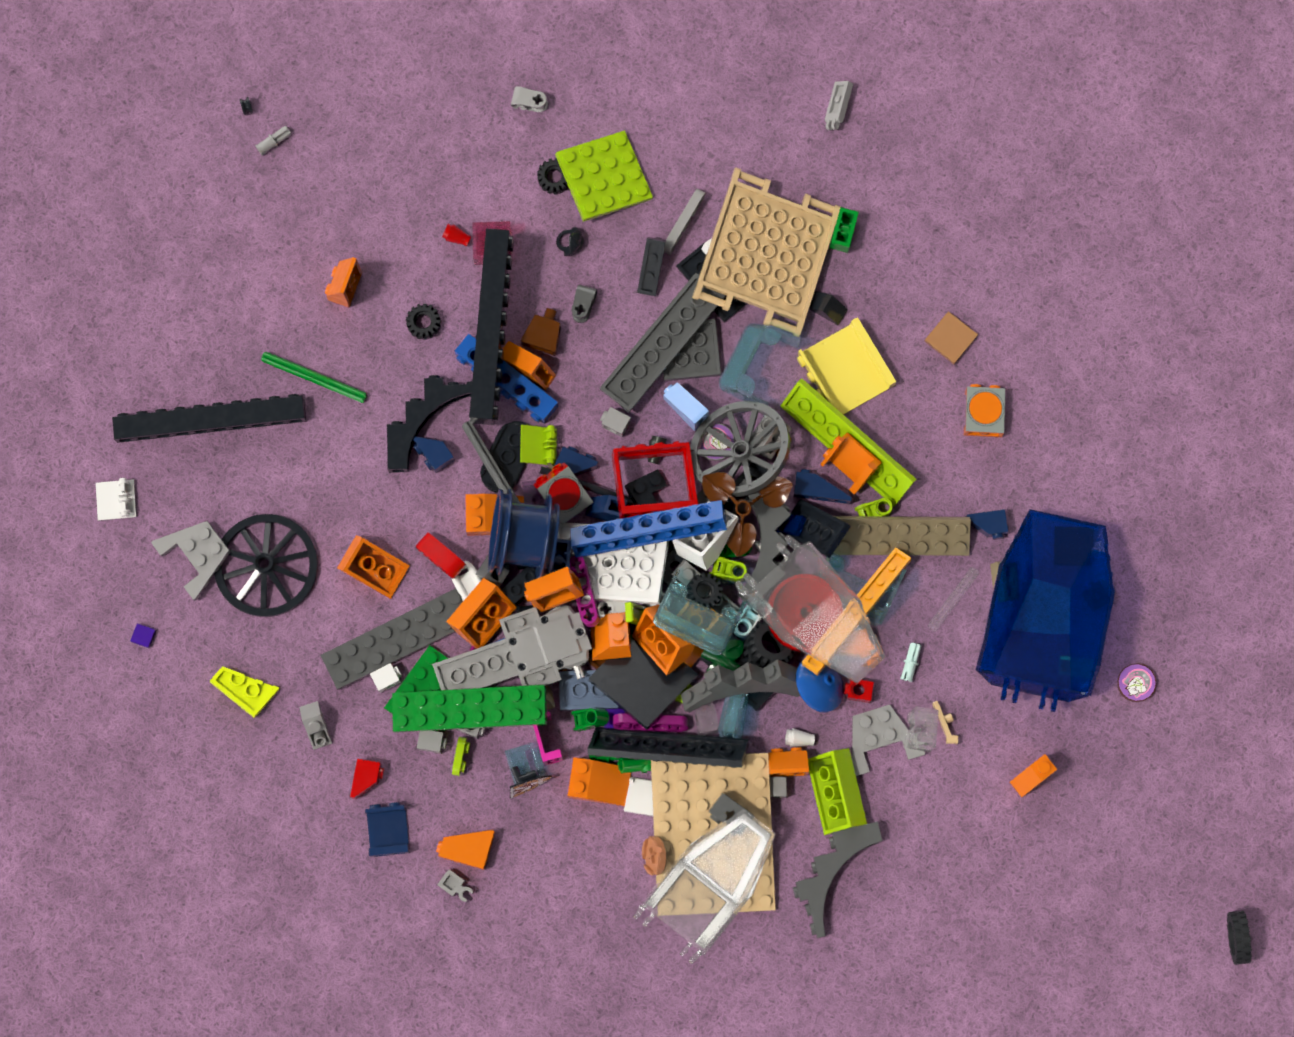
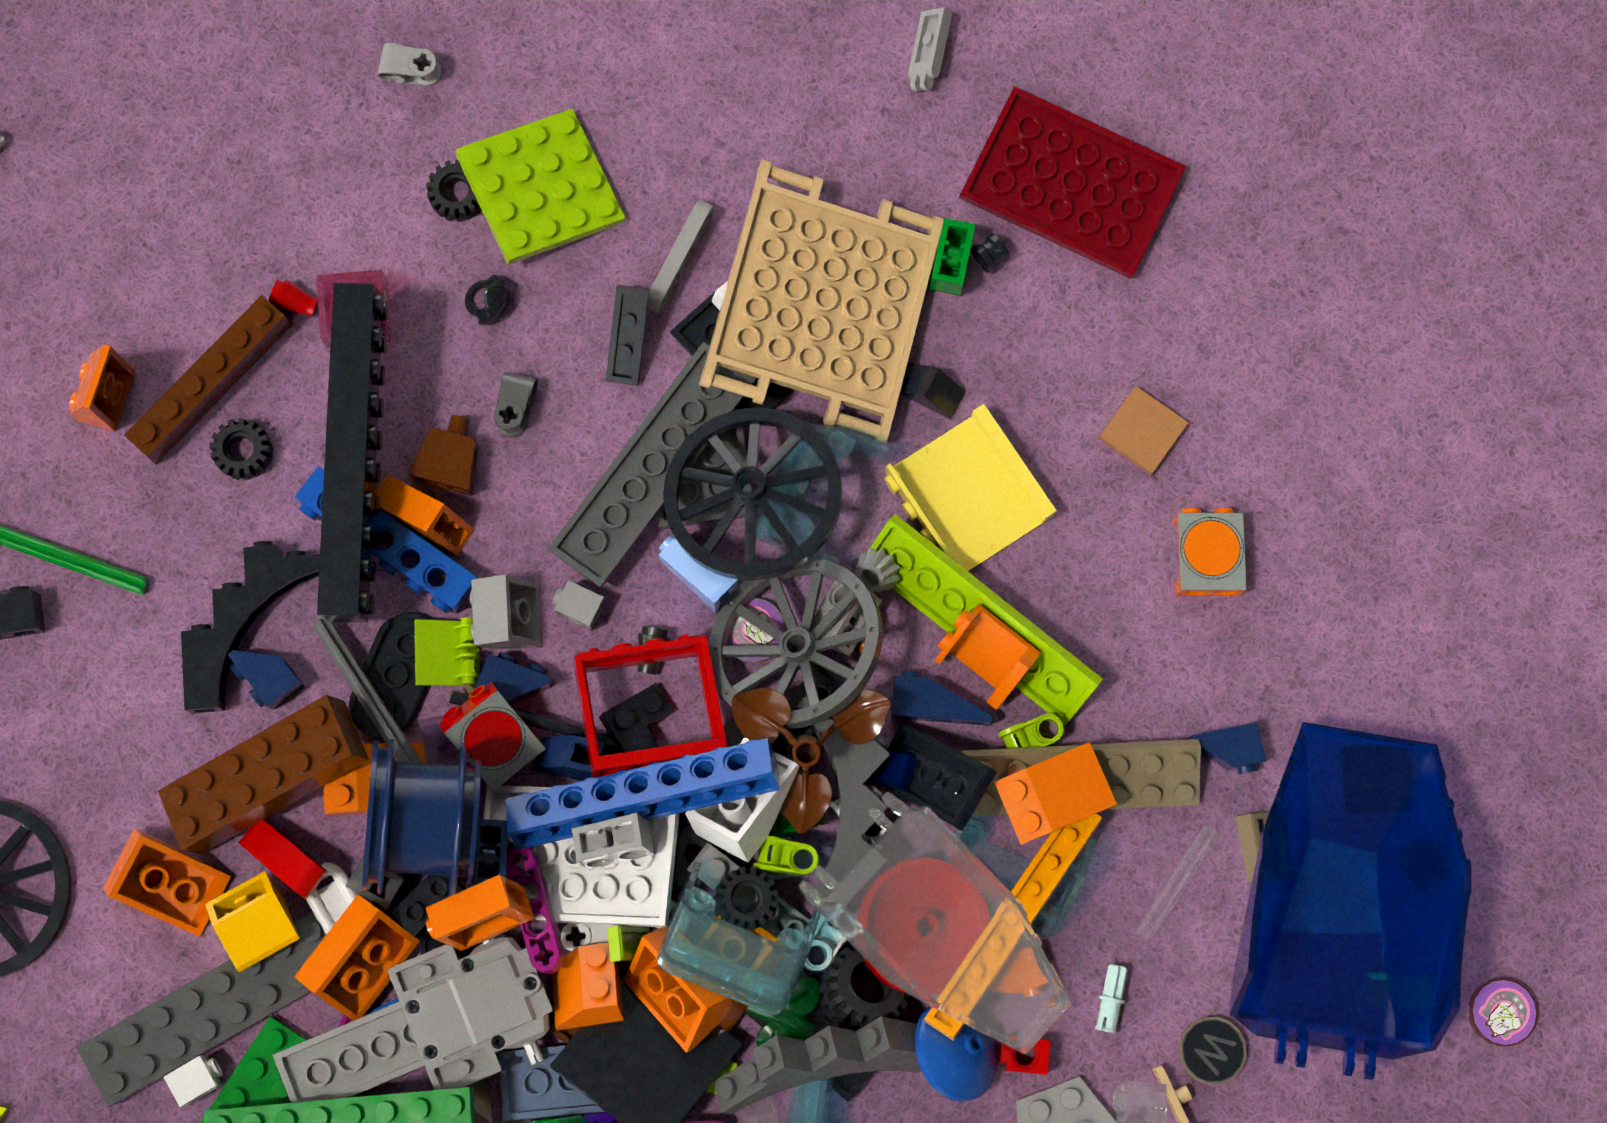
camera: 10 degrees left, 0 degrees up
(406, 280) = (208, 379): none -> reddish brown brick
(422, 589) = (252, 921): none -> yellow slope
(432, 507) = (263, 774): none -> reddish brown brick
(573, 423) = (506, 613): none -> light grey slope
(630, 554) = (612, 841): none -> light grey brick
(715, 351) = (751, 500): none -> black wheel
(790, 410) = (877, 570): none -> light grey piece
(867, 228) = (990, 252): none -> black wheel
(884, 541) = (1055, 793): none -> orange slope
(918, 189) = (1072, 182): none -> dark red plate
(967, 694) = (1212, 1050): none -> black tile

